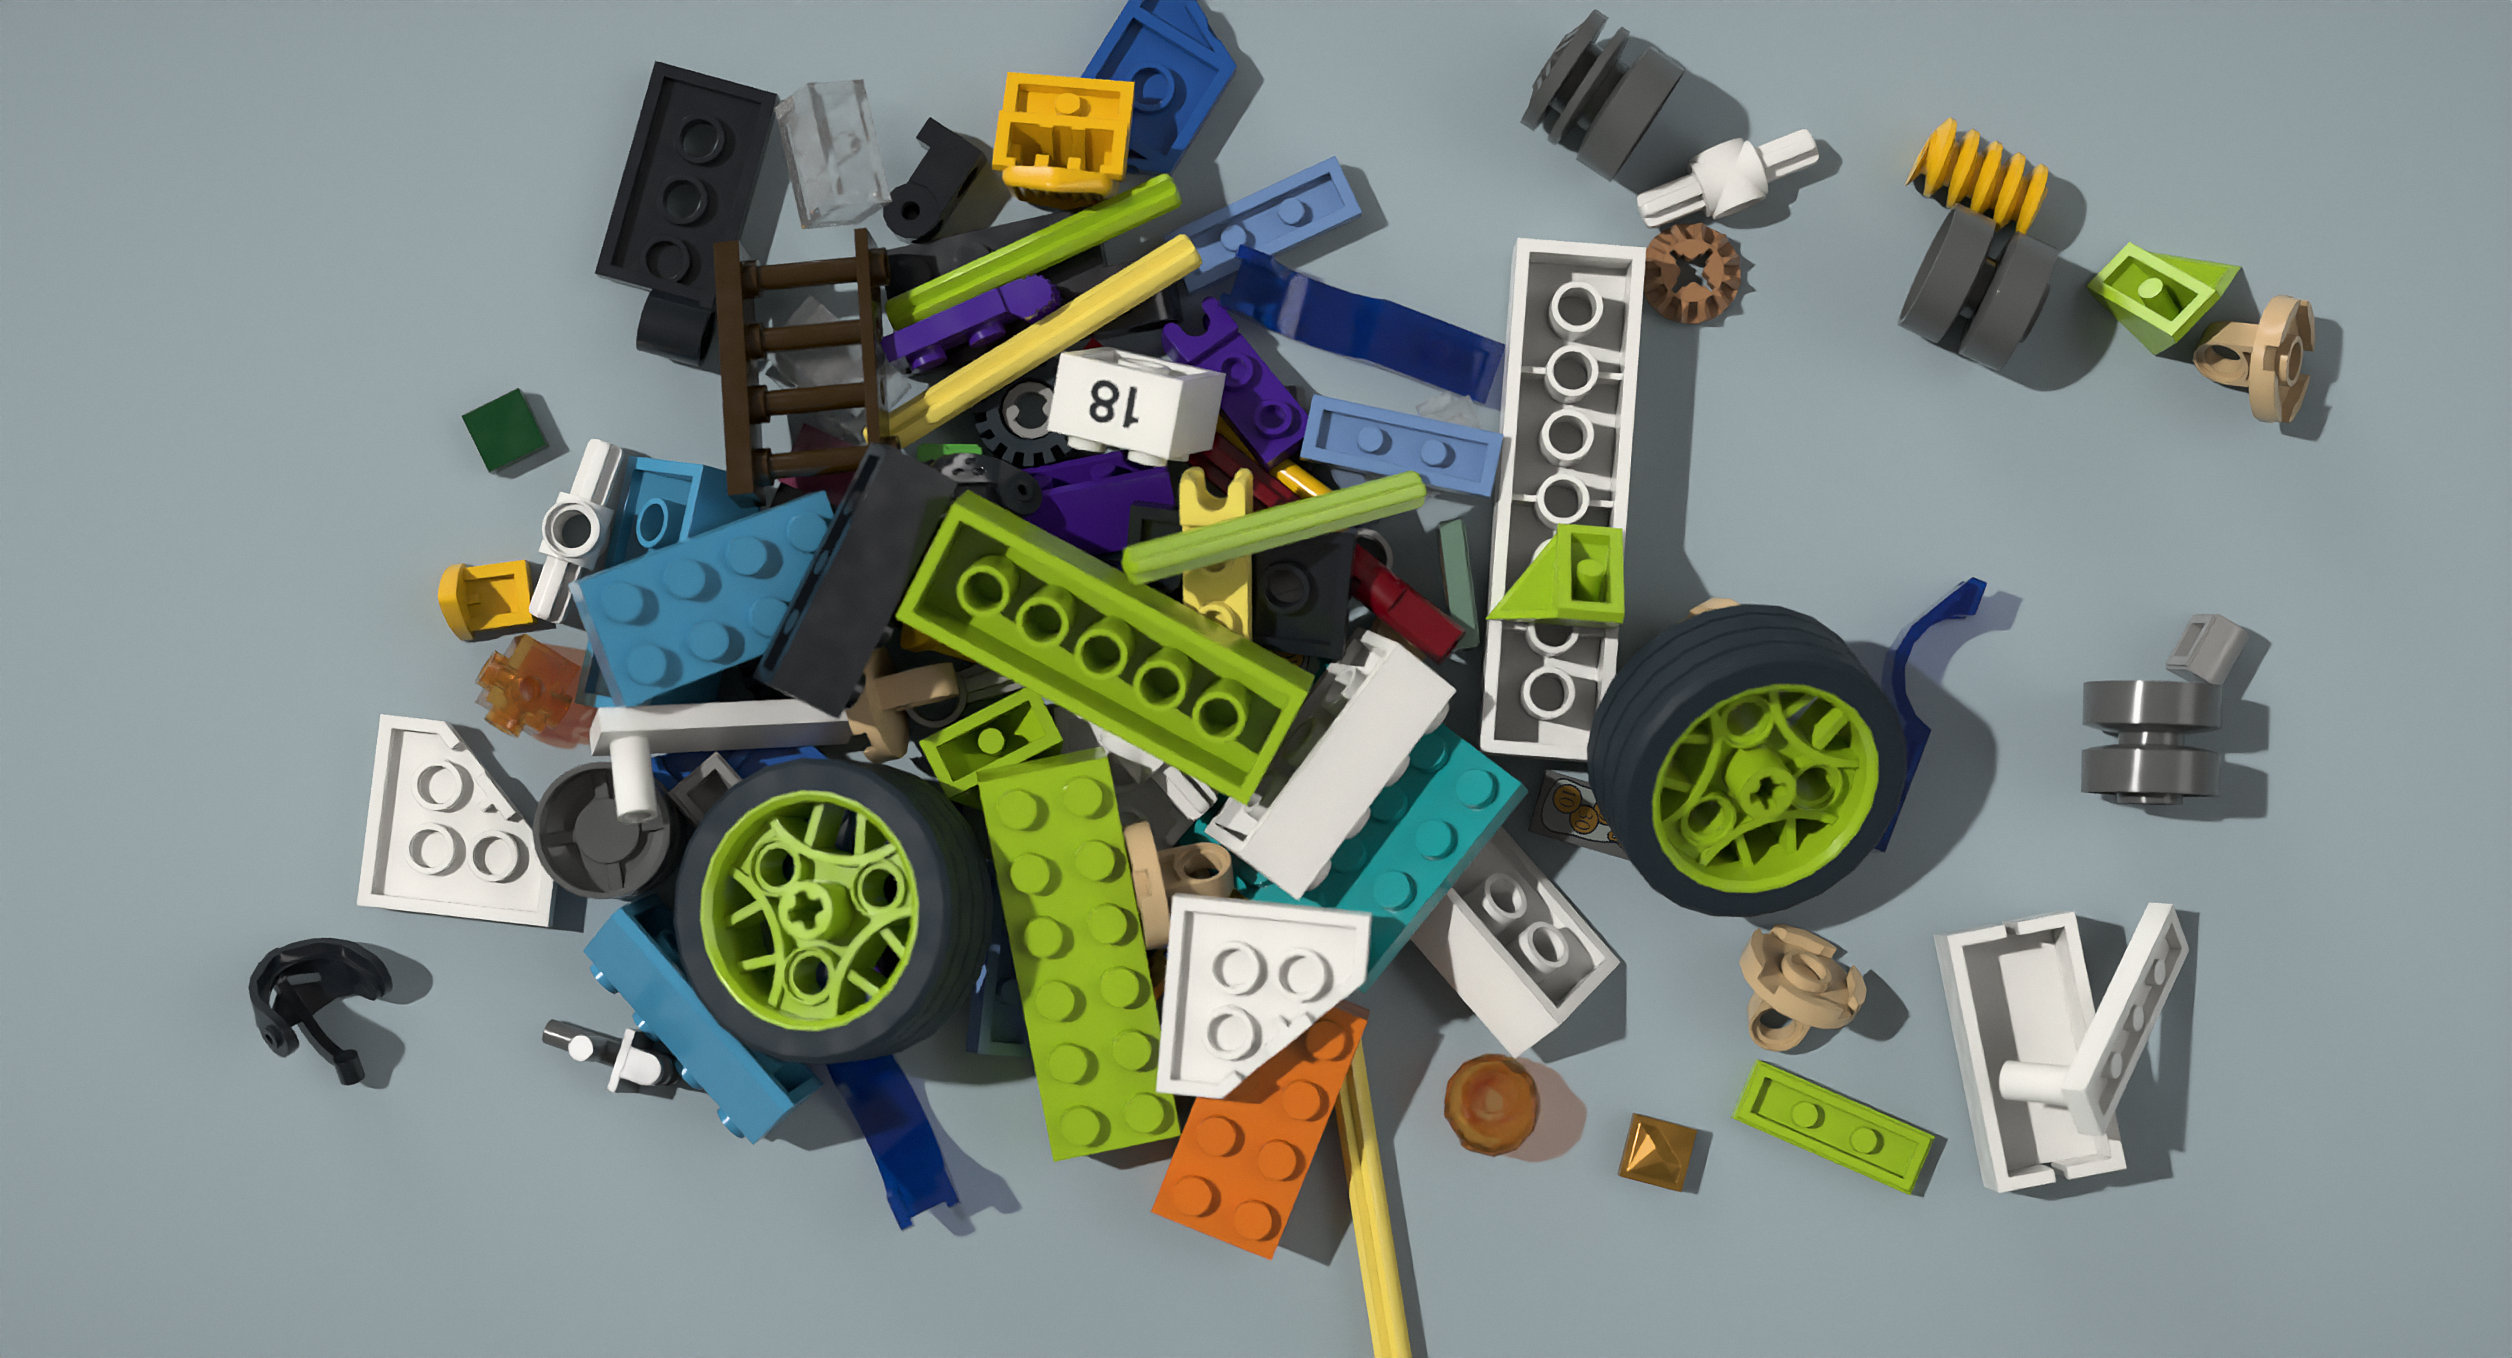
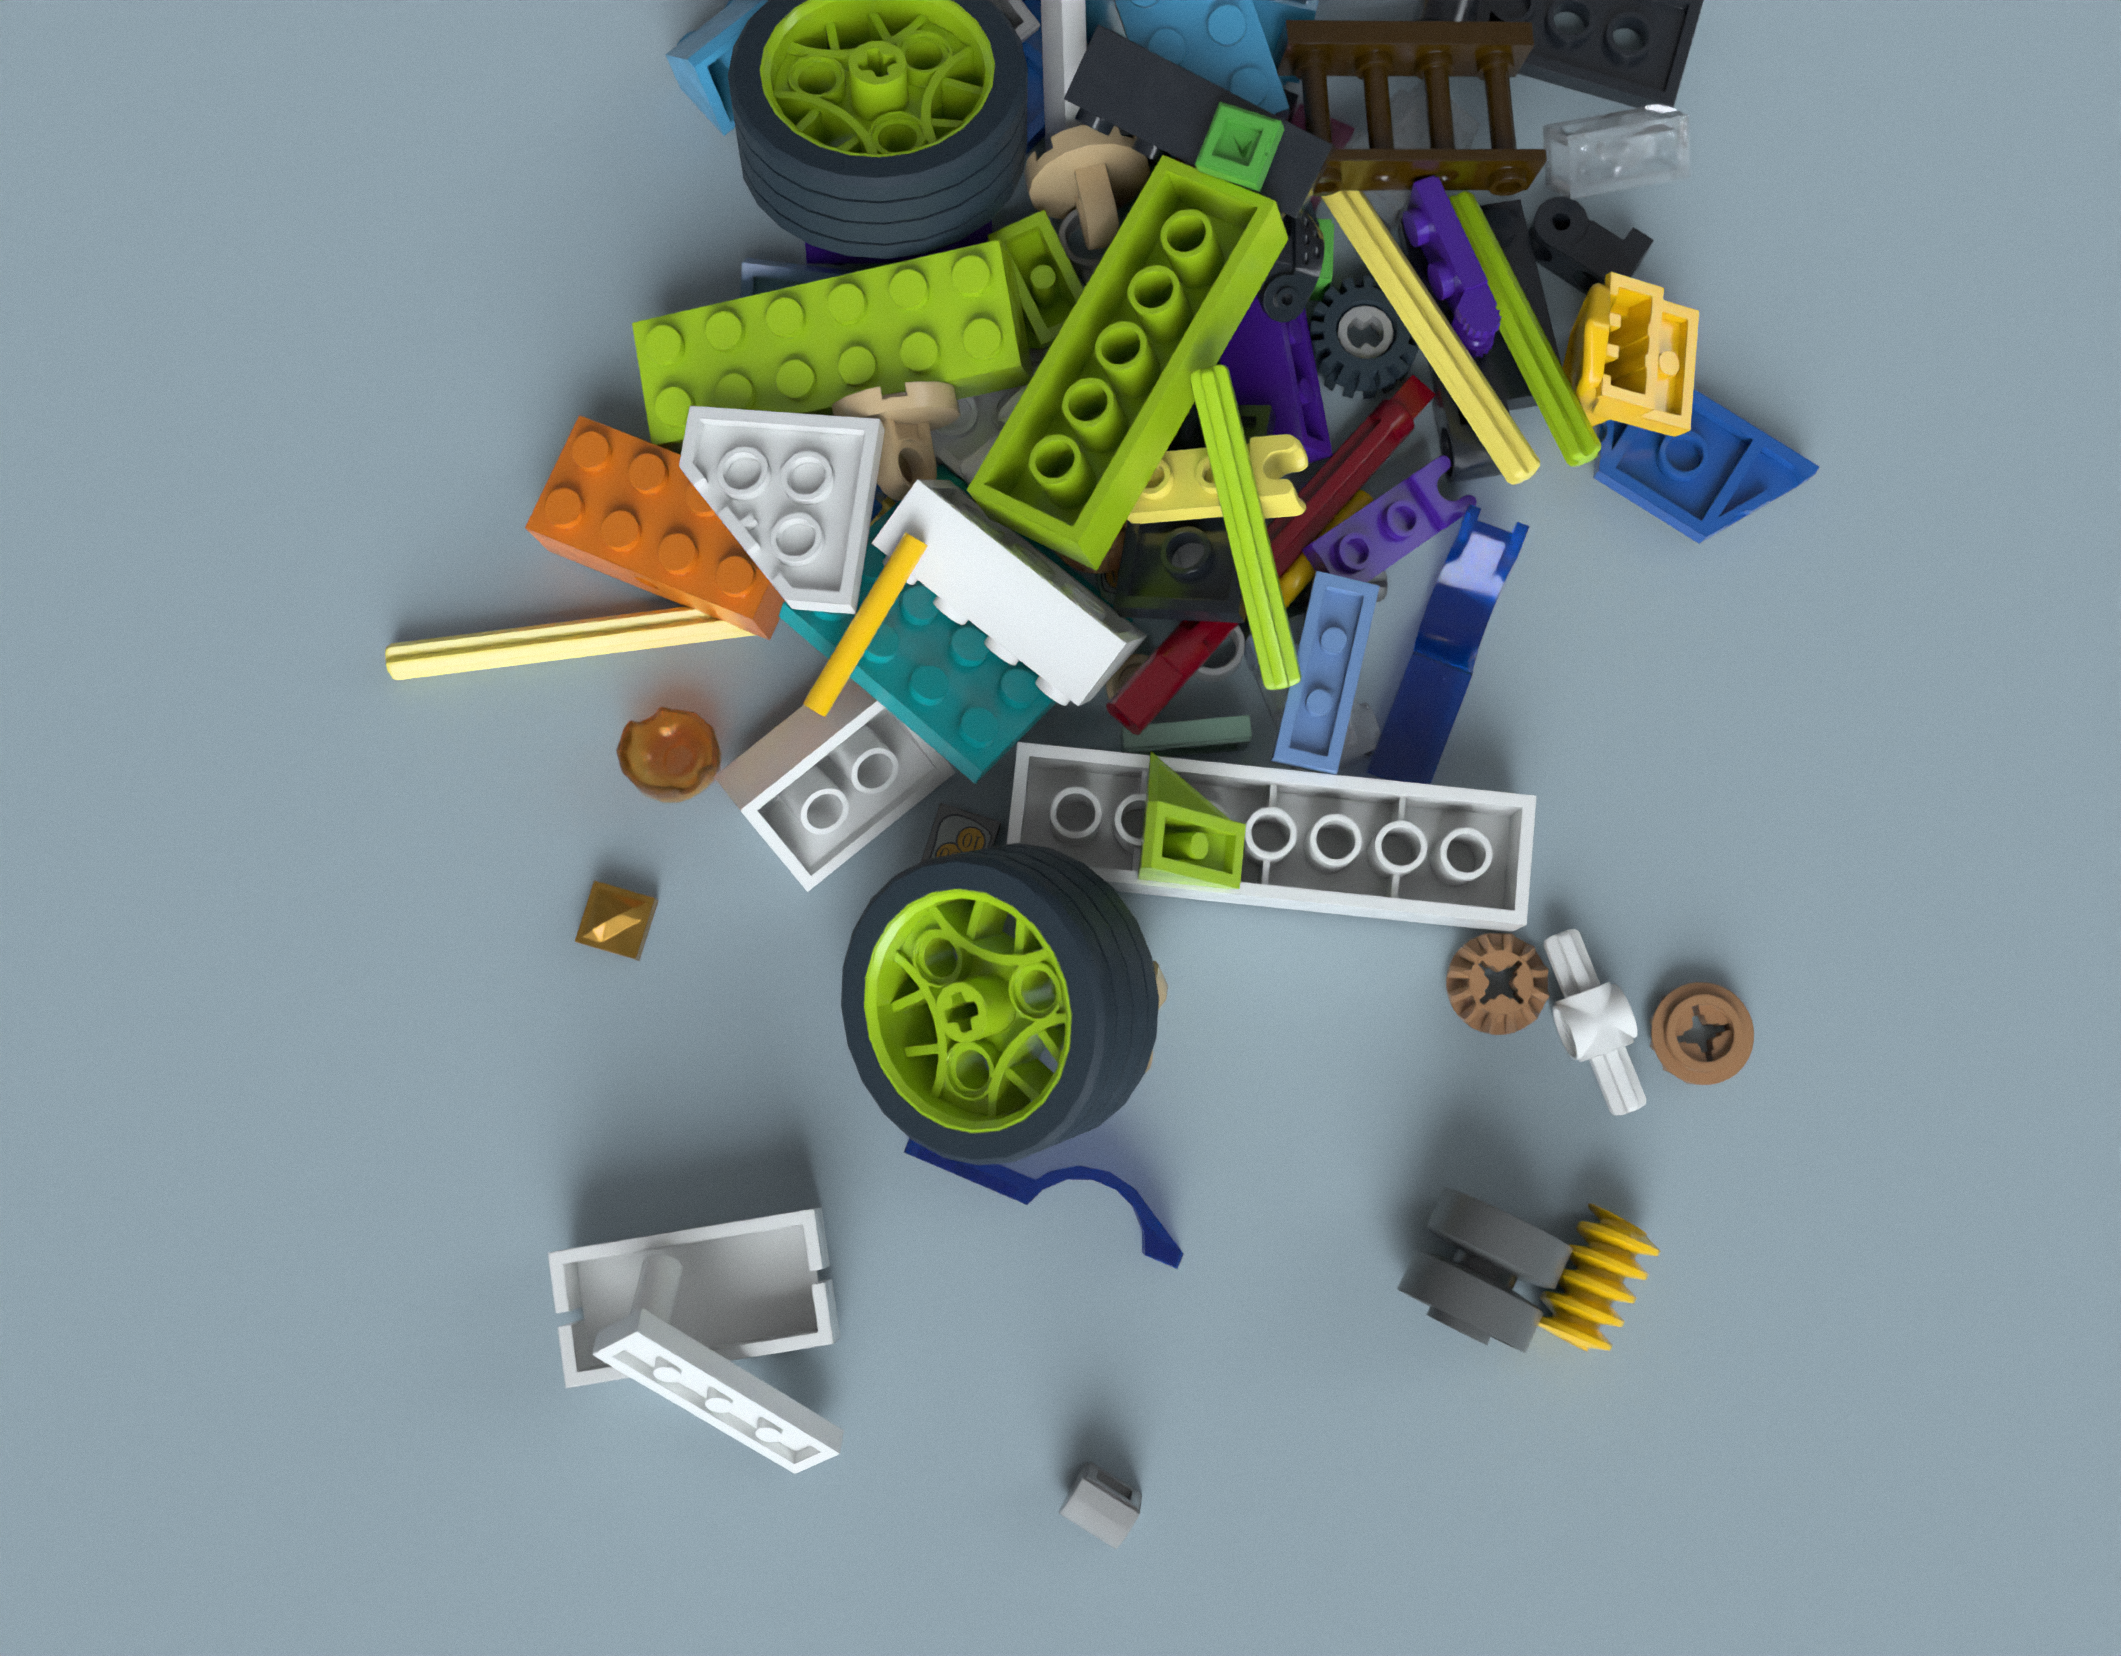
camera: 90 degrees right, 5 degrees down
(896, 1131) = (670, 202): clear blue piece -> none
(898, 539) = (1239, 146): none -> bright green tile
(1135, 404) = (1370, 409): white brick -> none
(1270, 221) = (1549, 565): medium blue plate -> none
(1382, 902) = (865, 624): none -> yellow bar
(1601, 94) = (1681, 890): dark grey wheel -> none
(1748, 49) = (1714, 1006): none -> medium nougat gear
(1800, 980) = (775, 1062): tan tile -> none
(1832, 1127) = (632, 1098): lime tile -> none
(2151, 726) = (993, 1435): dark grey wheel -> none
(2159, 293) = (1477, 1468): lime slope -> none
(2268, 357) = (1410, 1581): tan tile -> none

